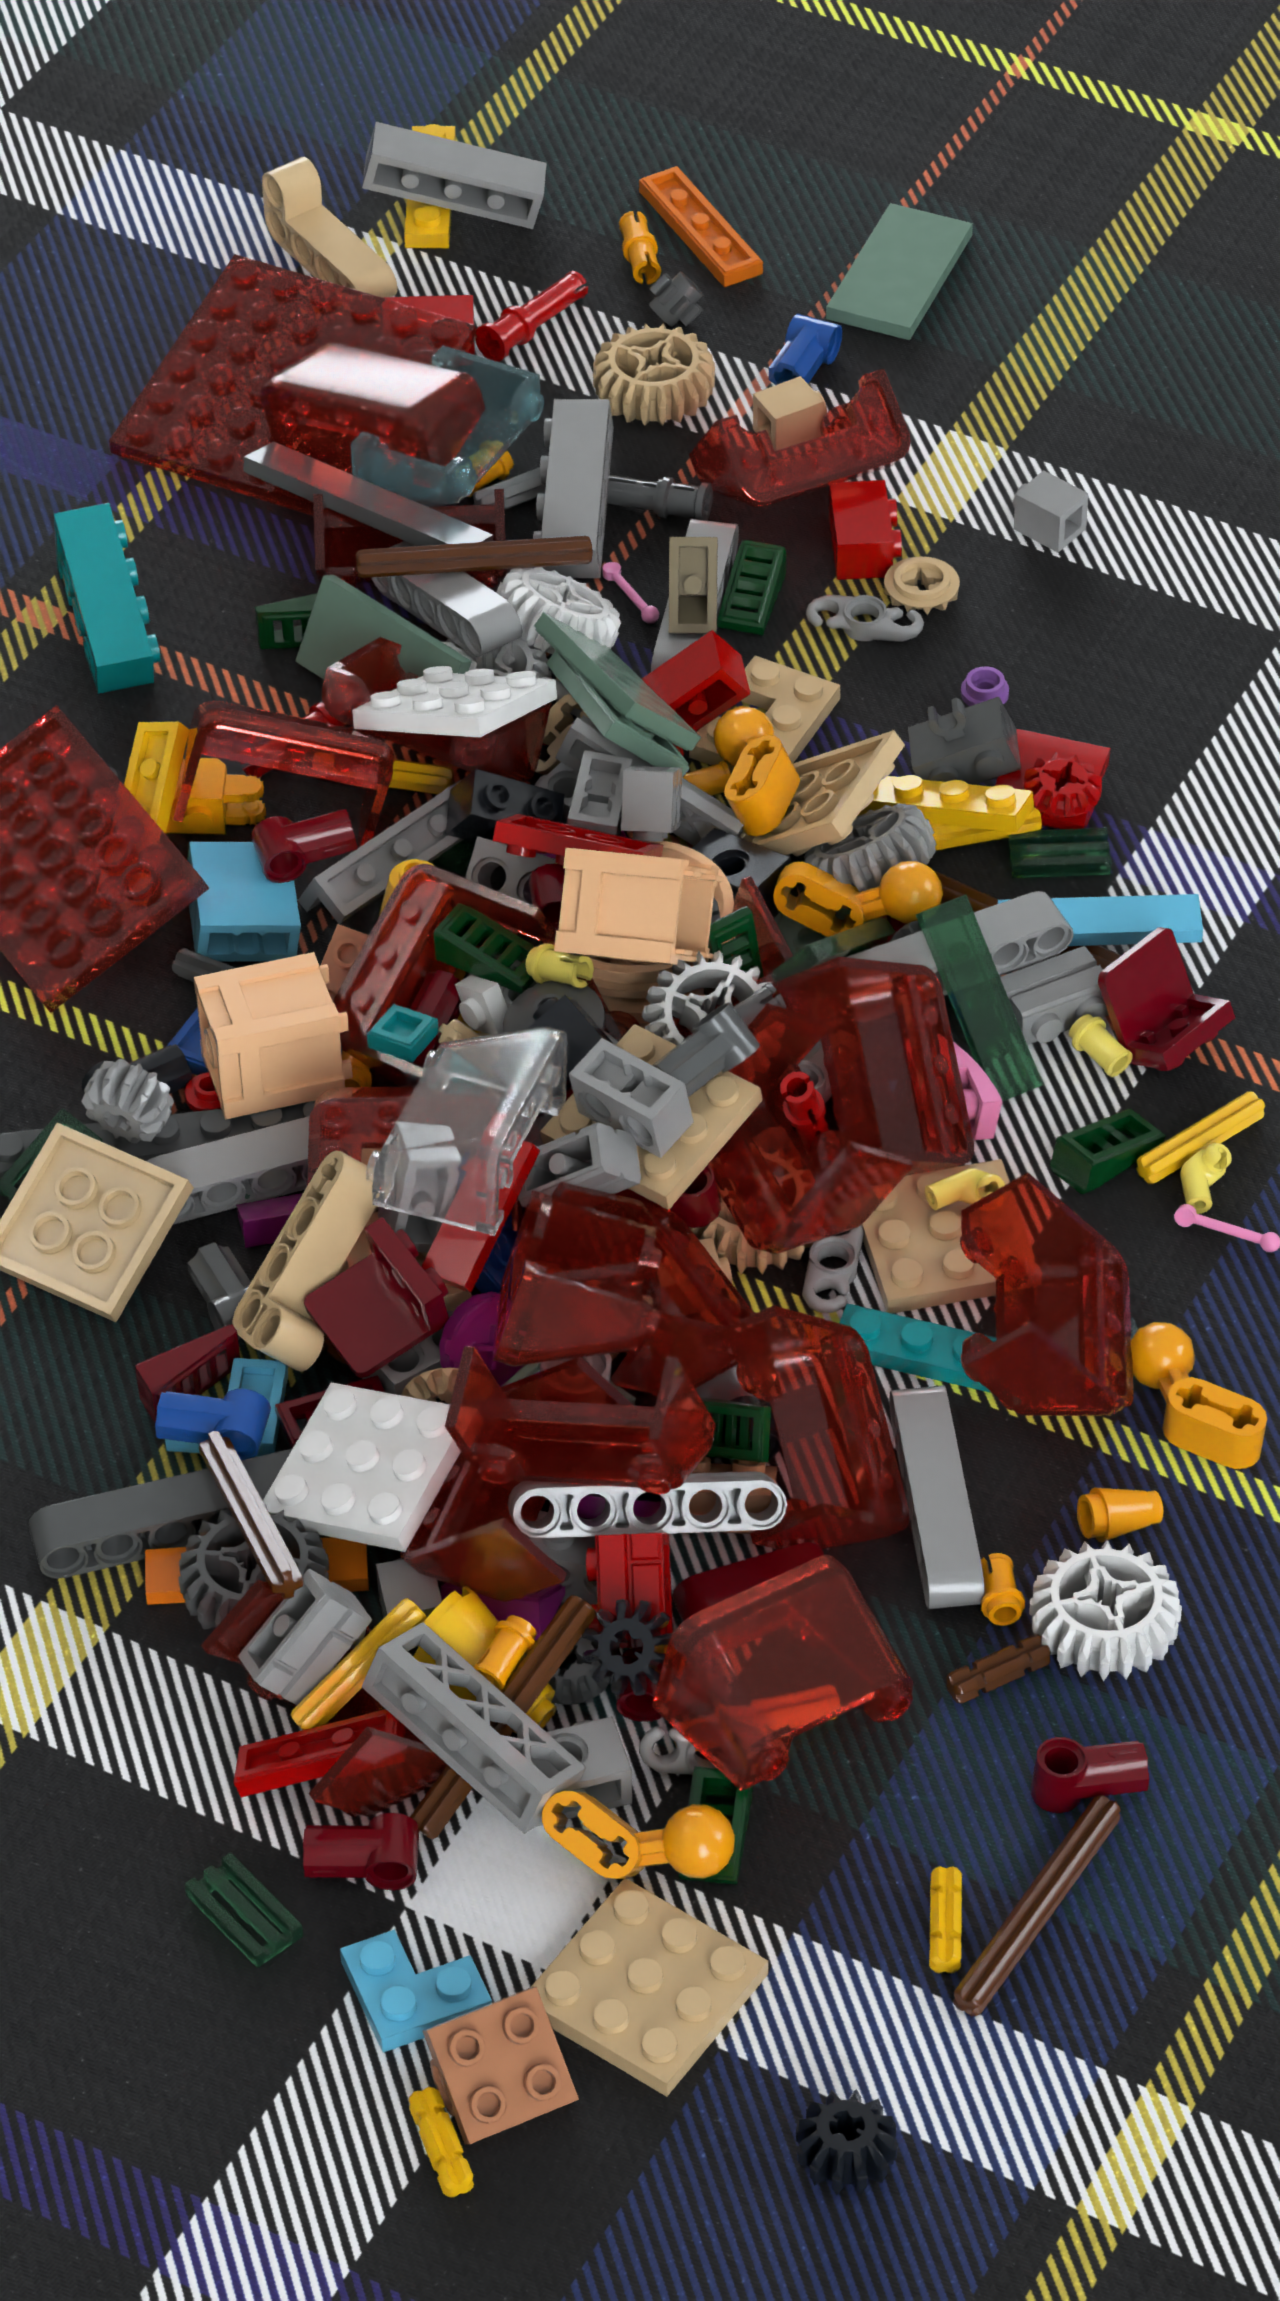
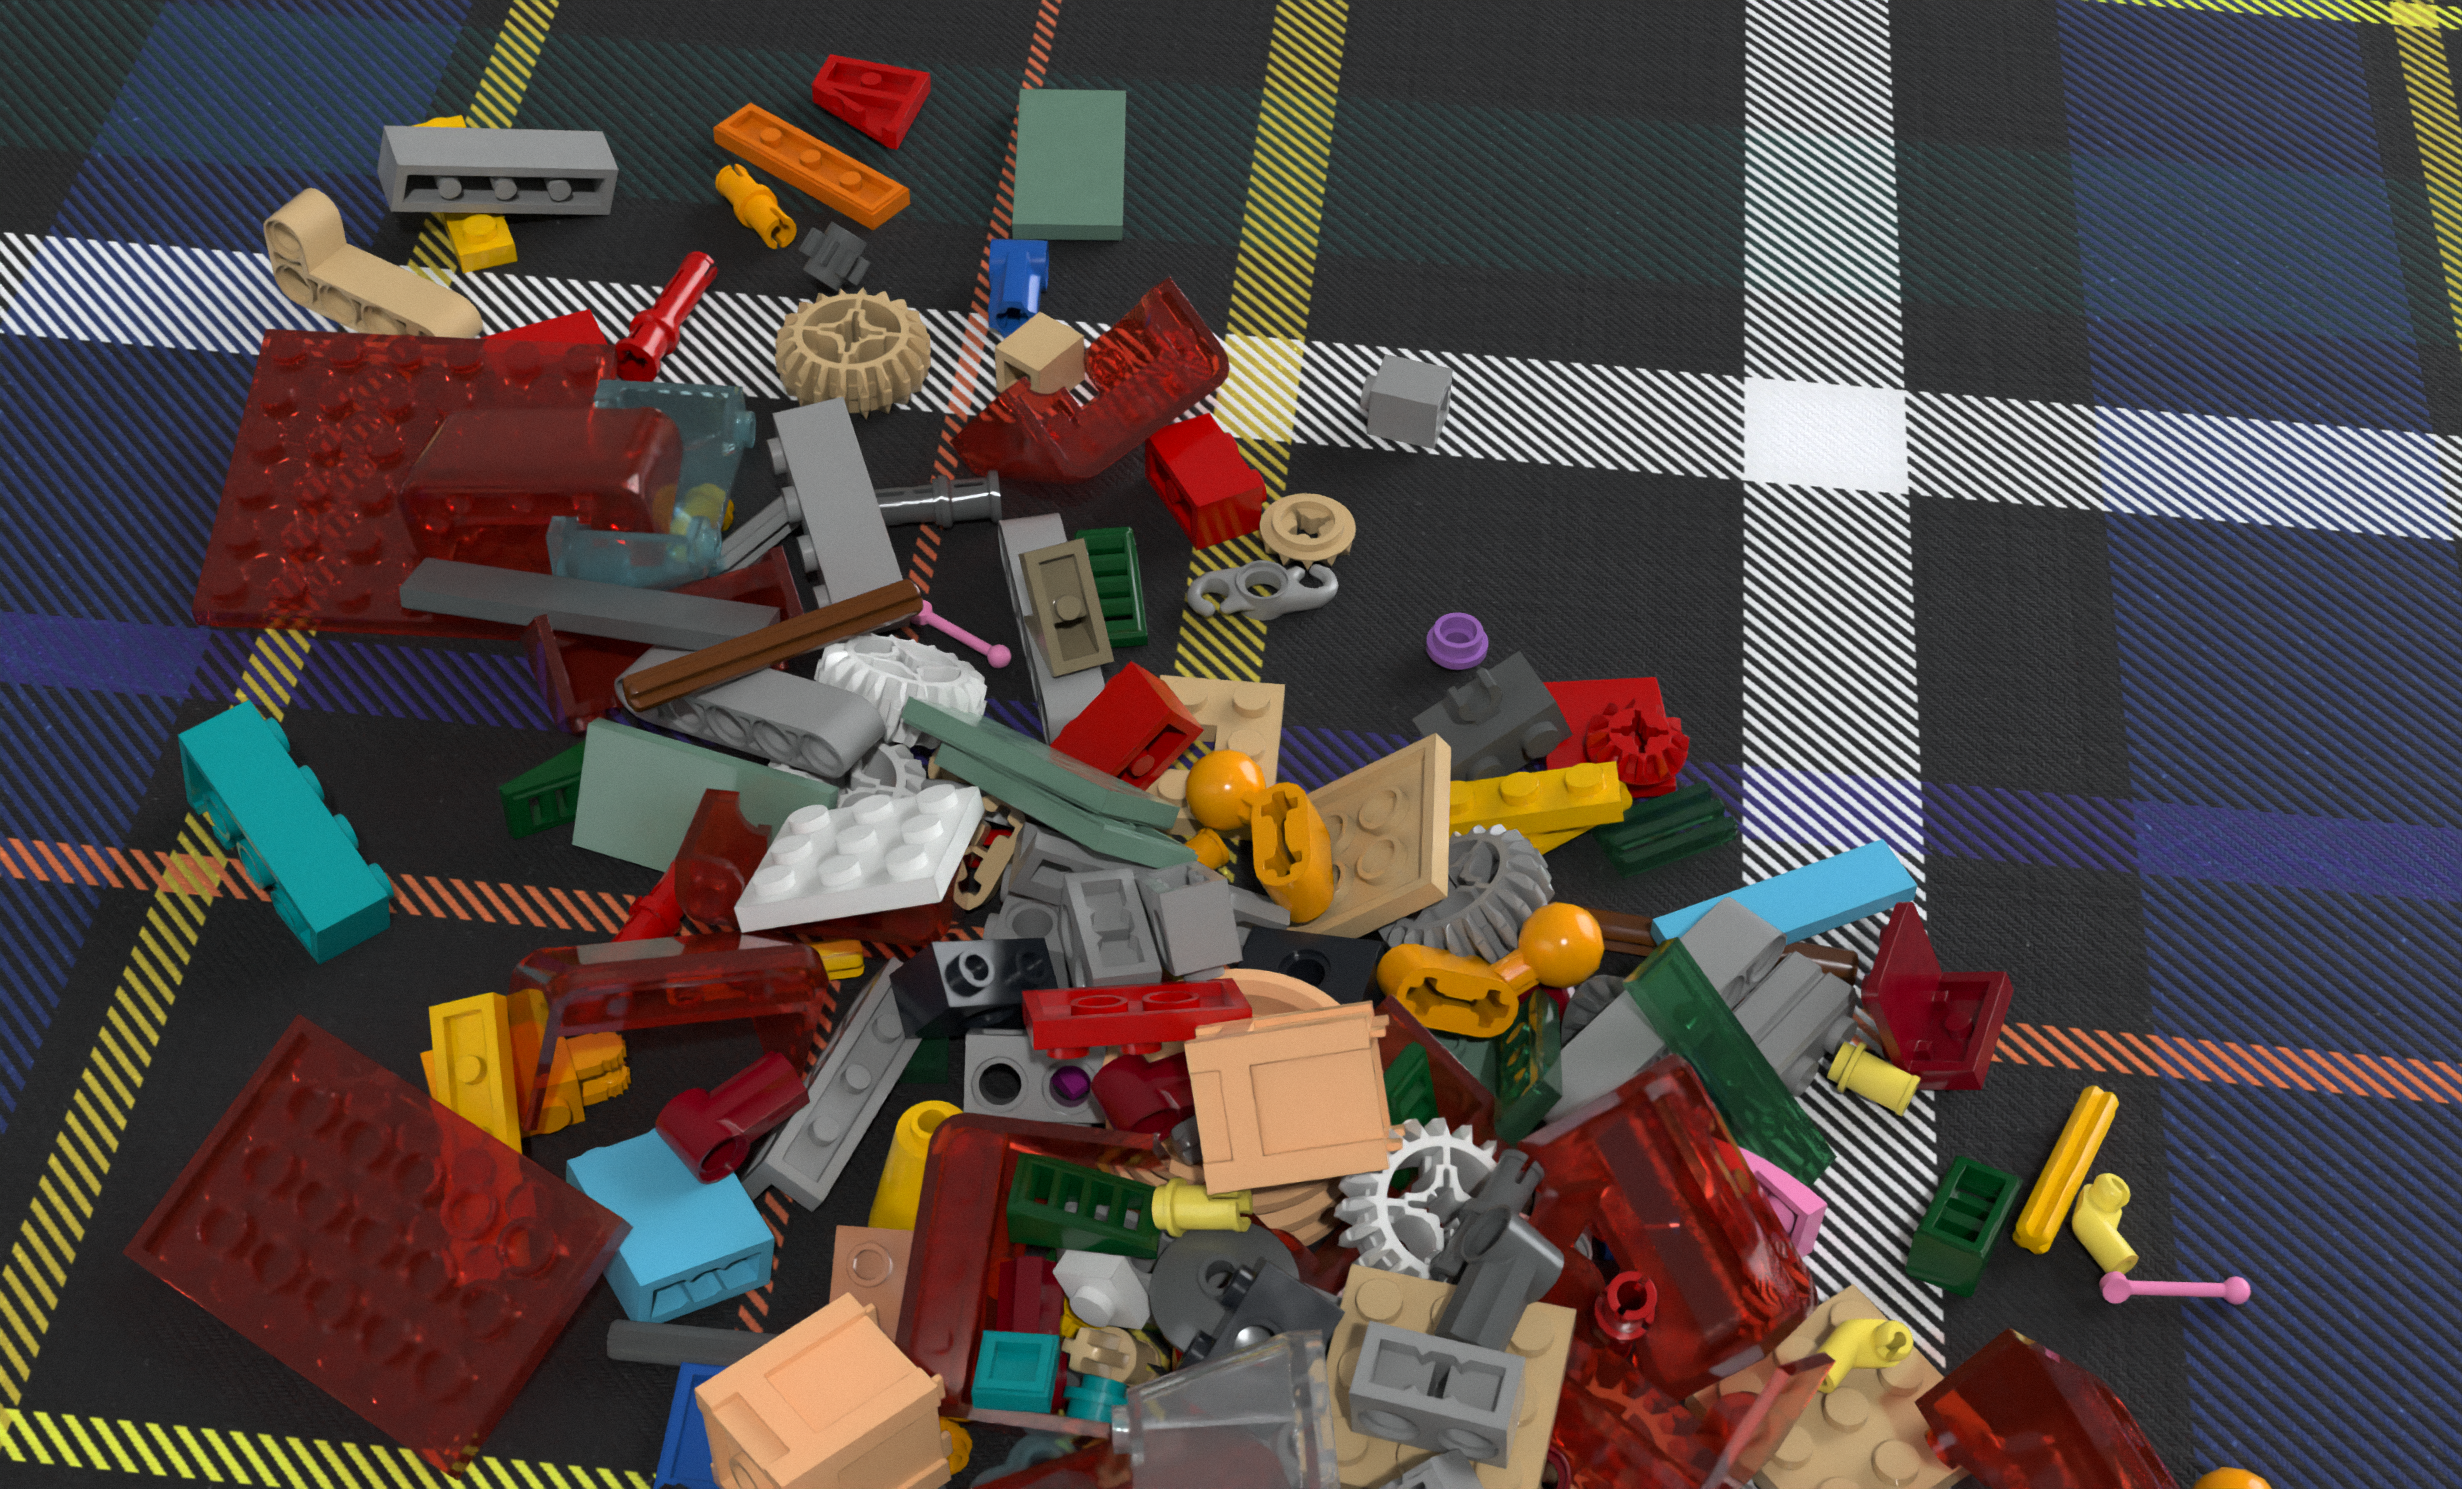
camera: 25 degrees left, 0 degrees up
(773, 182) = (872, 96): none -> red wing

